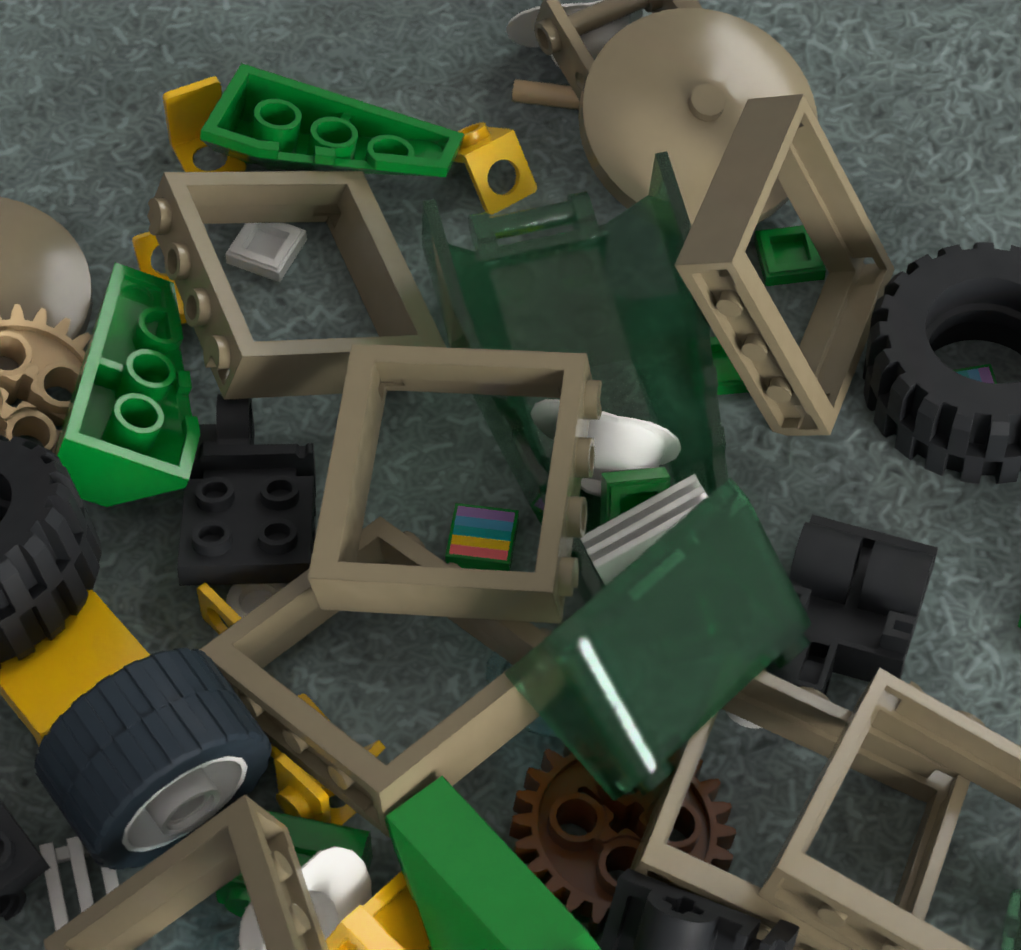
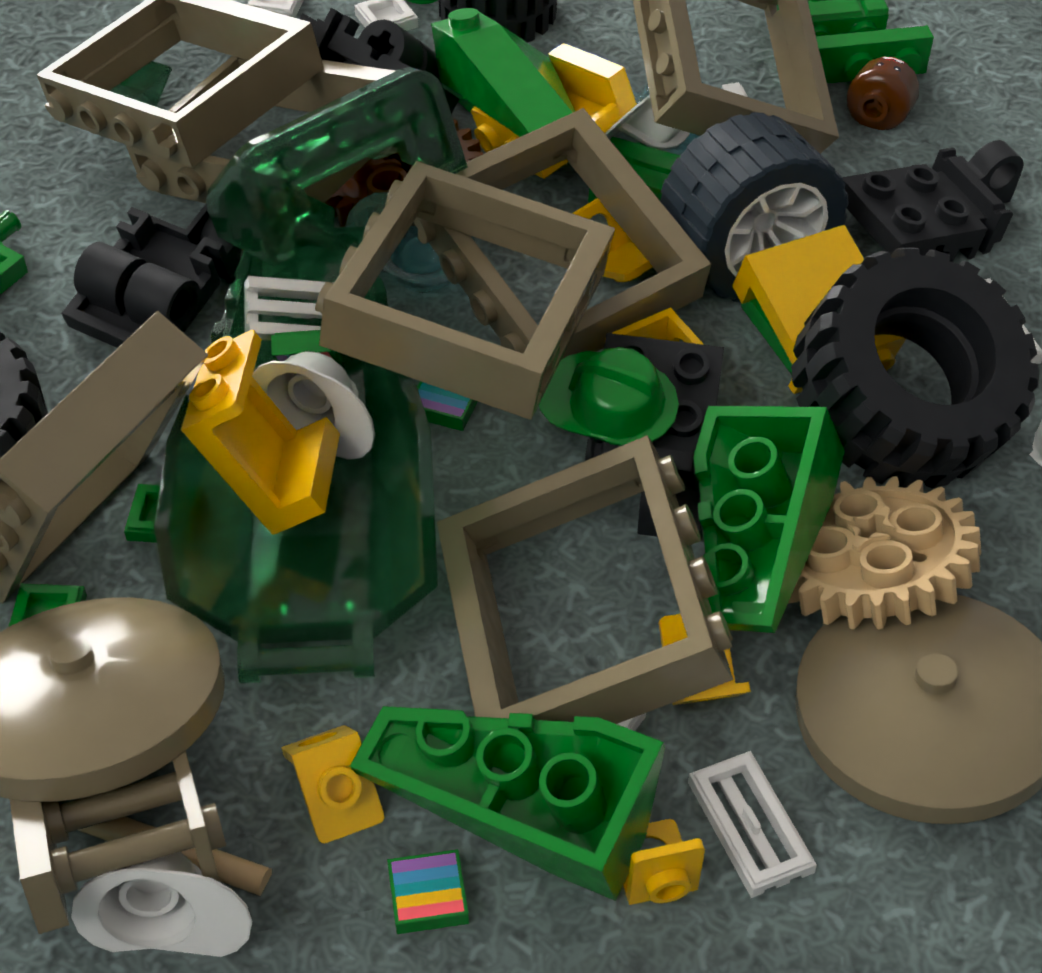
camera: 170 degrees left, 5 degrees down
(102, 154) = (776, 873): none -> white tile
(282, 478) = (610, 397): none -> green piece
(386, 90) = (427, 891): none -> tile
(643, 343) = (251, 443): none -> yellow panel

